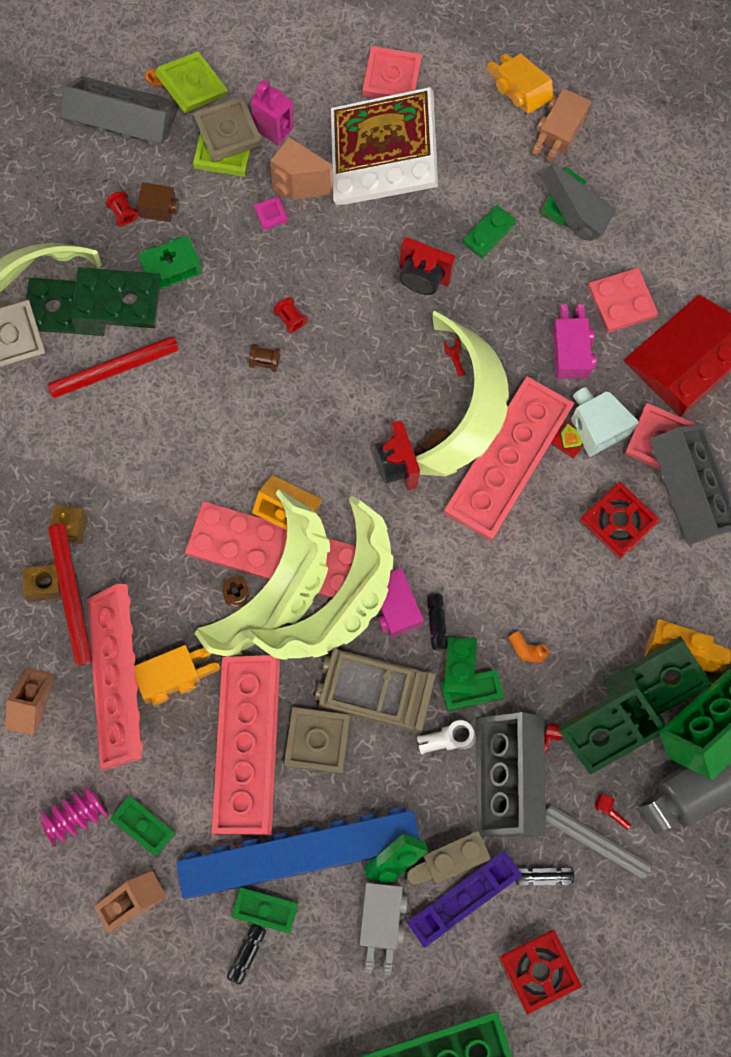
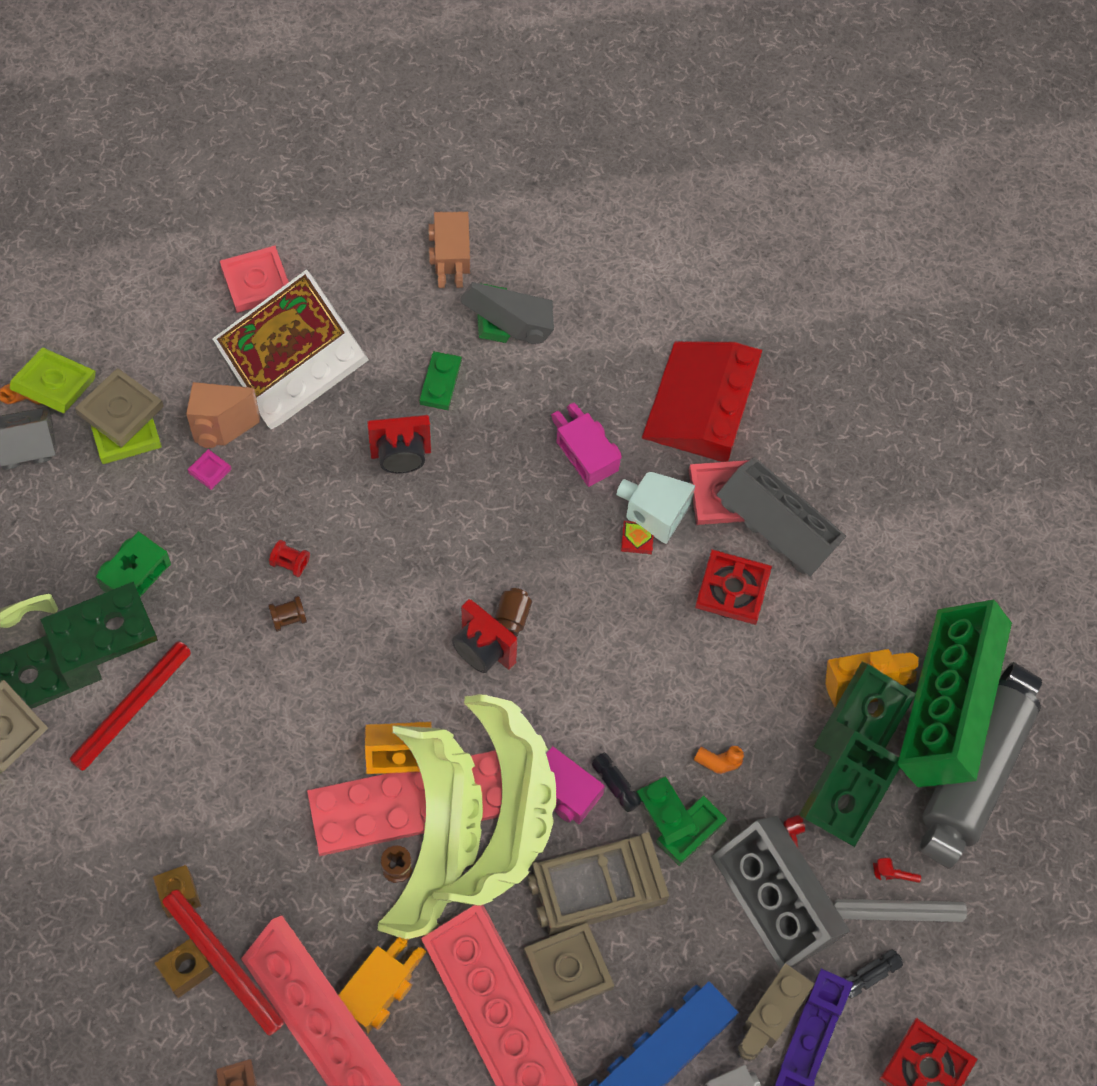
camera: 30 degrees left, 10 degrees down
(121, 197) = (36, 540): red bush -> none
(157, 202) = (84, 515): reddish brown brick -> none
(272, 112) = (157, 368): dark pink hinge -> none
(395, 859) = (721, 1040): green plate -> none
(445, 738) = (695, 891): white pin -> none
(453, 353) = (474, 513): red hand -> none
(486, 410) = (544, 549): yellowish green windscreen -> none
(512, 457) = (590, 587): coral plate -> none
(522, 82) = (389, 225): light orange hinge -> none
(623, 300) = (607, 381): coral plate -> none

